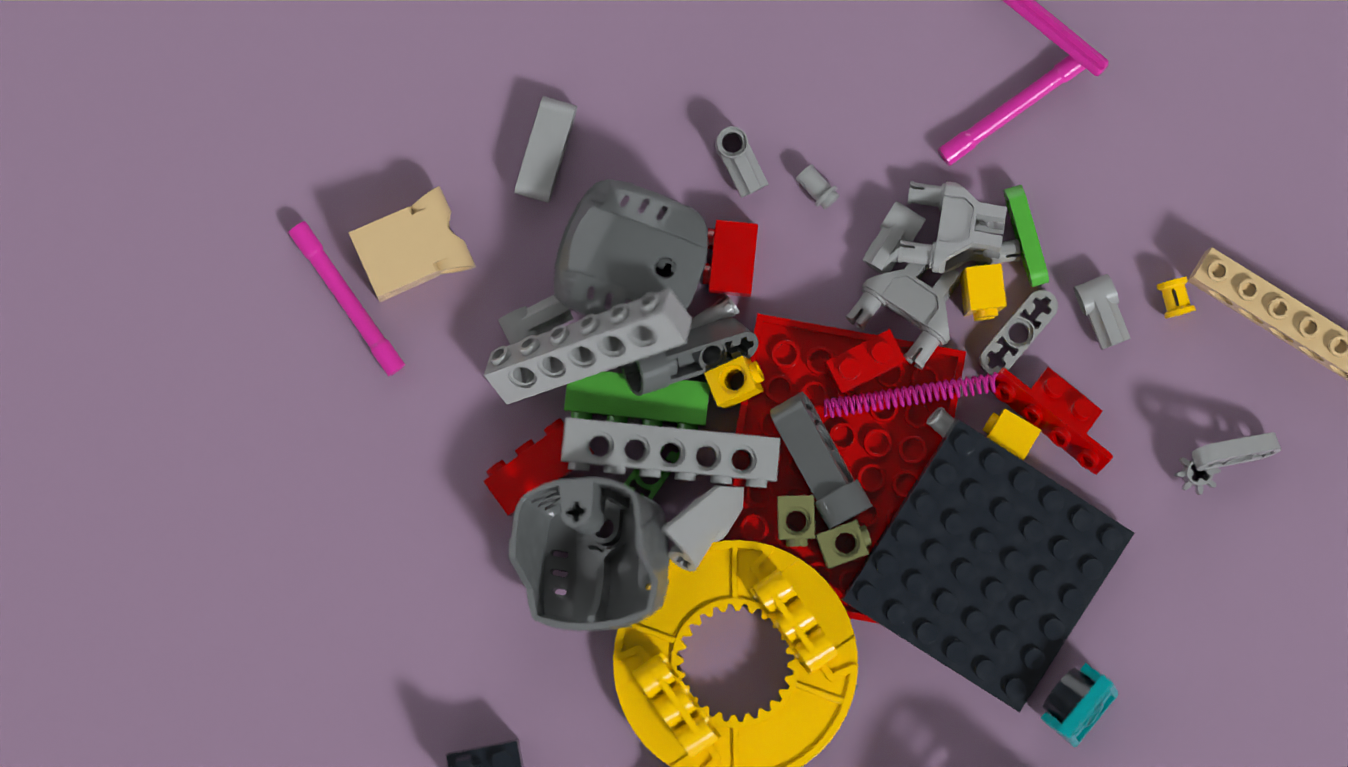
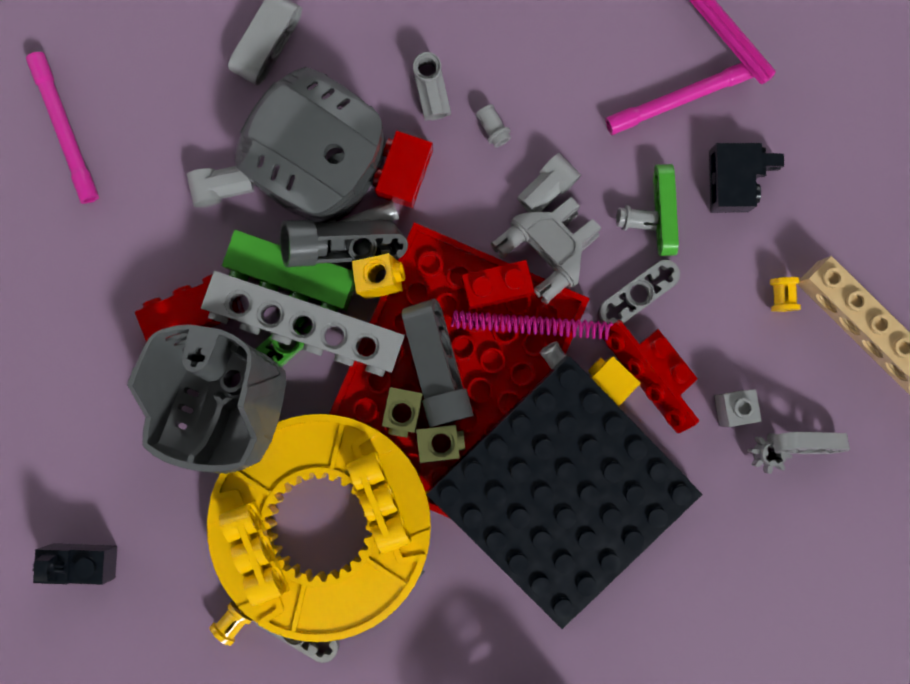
camera: 15 degrees right, 0 degrees up
(411, 246) = (123, 93): tan piece -> none
(588, 346) = (252, 210): light grey brick -> none
(702, 524) = (316, 395): light grey panel -> none
(962, 228) = (615, 189): light grey connector -> none
(983, 291) = (617, 247): yellow brick -> none
(1078, 703) = (616, 635): teal piece -> none
(1091, 178) = (734, 175): none -> black hinge
(1099, 301) = (717, 284): light grey piece -> none
(1151, 432) = (737, 408): none -> light grey brick

